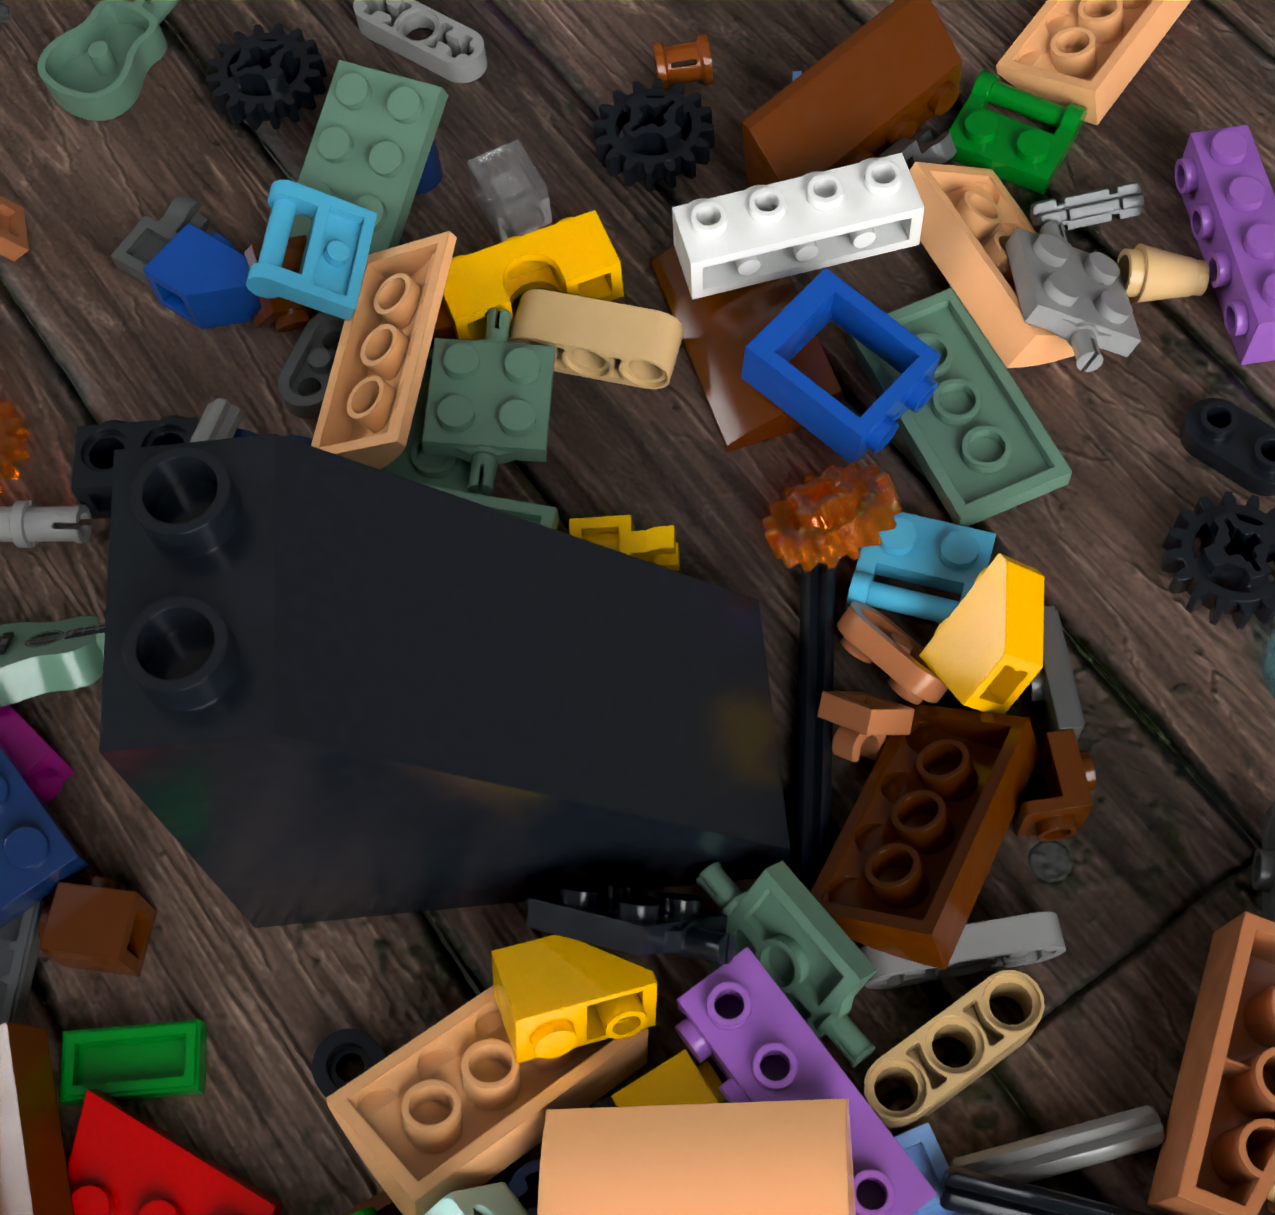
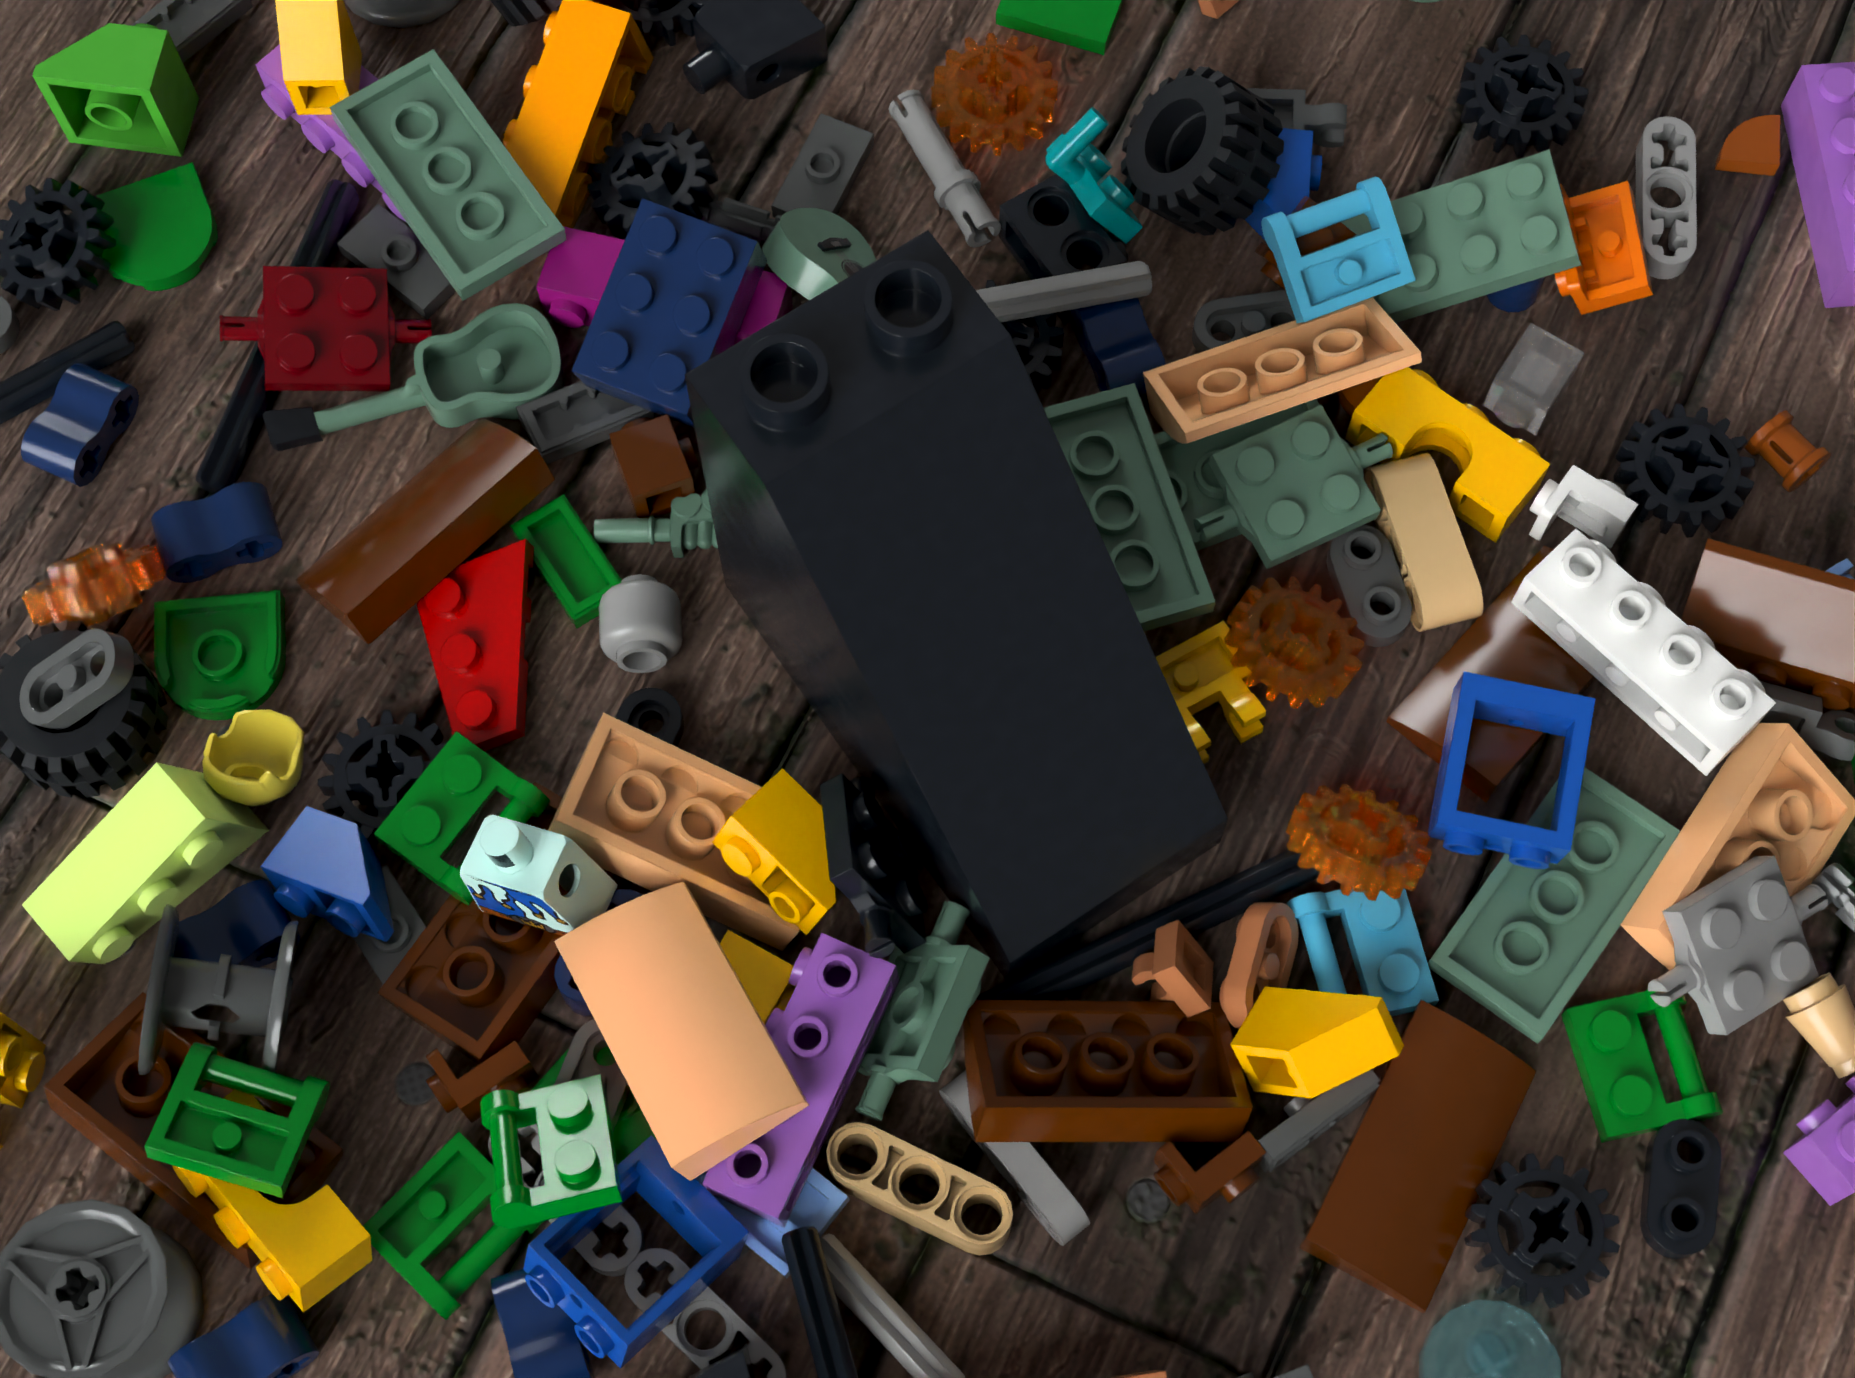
camera: 55 degrees right, 5 degrees up
(90, 406) = (1085, 171): none -> teal plate
(107, 311) = (1202, 151): none -> black tyre
(175, 921) = (686, 528): none -> sand green piece
(247, 1023) = (640, 624): none -> light grey head
(466, 85) = (1609, 250): none -> orange bracket
(600, 401) = (1368, 581): none -> dark grey plate
(624, 475) = (1294, 642): none -> clear orange gear
(638, 212) = (1584, 502): none -> white bracket
(1118, 436) = (1620, 1070): none -> green plate
(1126, 628) = (1419, 1157): none -> reddish brown slope

